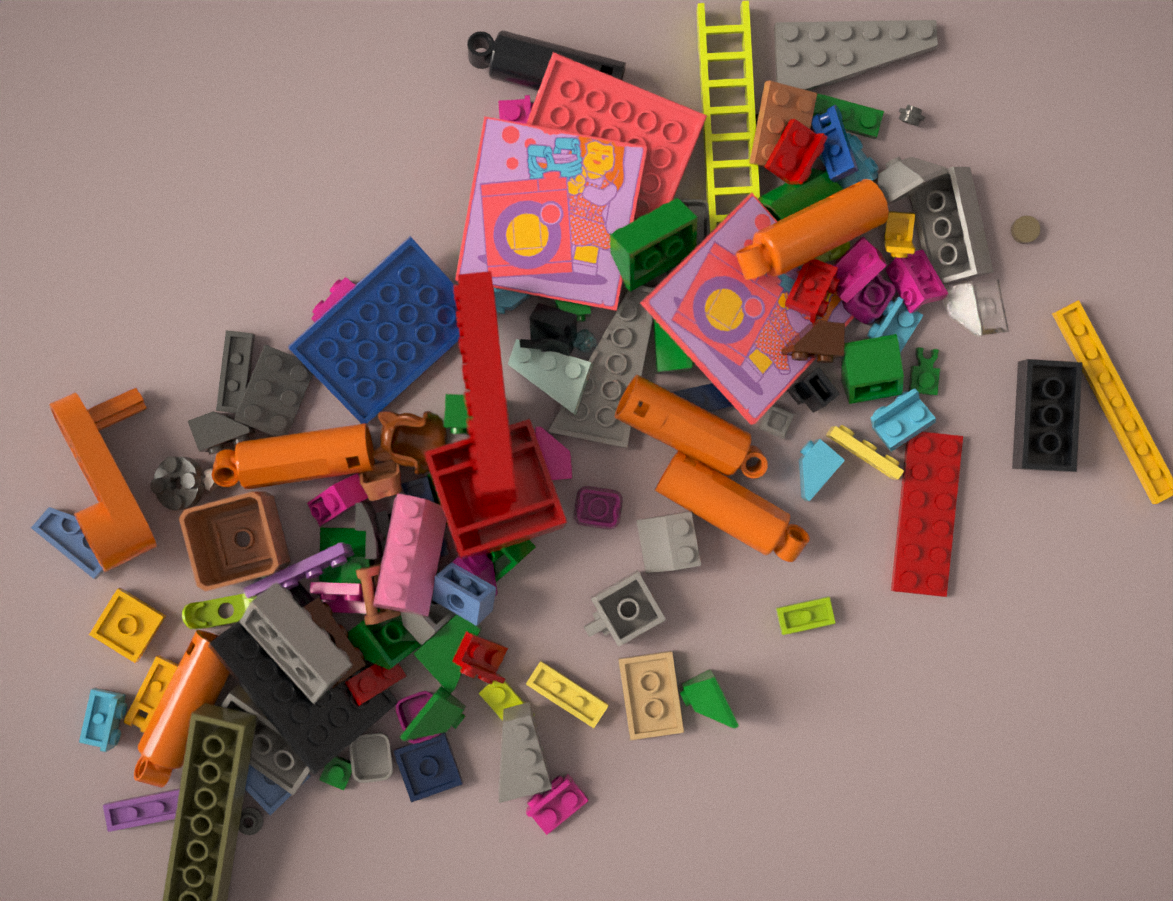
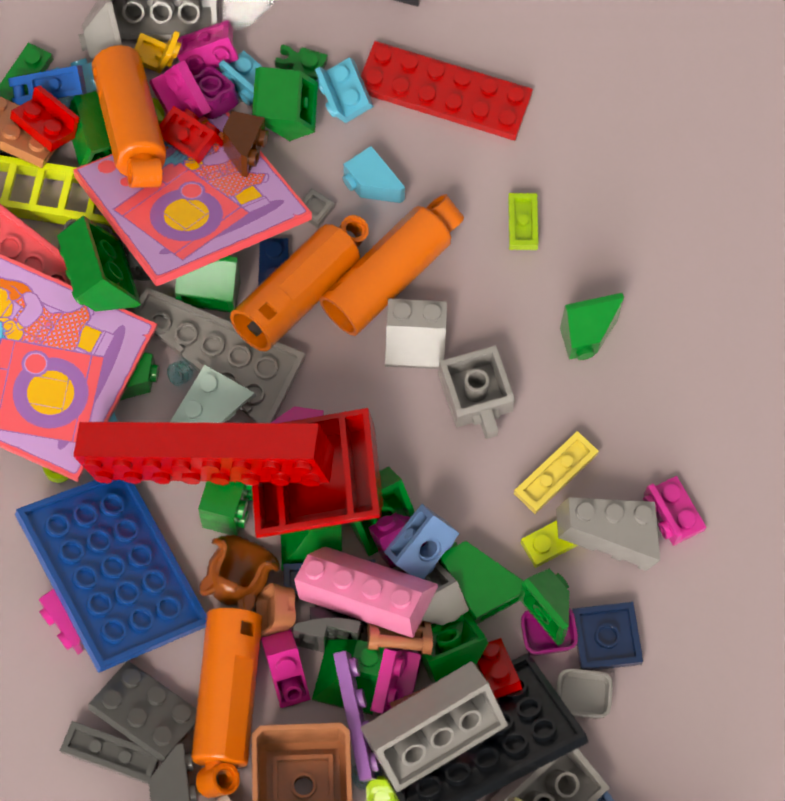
camera: 80 degrees left, 20 degrees down
(337, 773) = (599, 740): green plate -> none
(480, 657) = (496, 546): red bracket -> none
(551, 330) = (159, 395): black piece -> none
(598, 507) = (363, 392): magenta piece -> none
(651, 695) = (575, 388): tan plate -> none
(814, 390) = (295, 159): black piece -> none
(865, 451) = (368, 130): light yellow plate -> none
(911, 115) = (40, 18): dark grey plate -> none

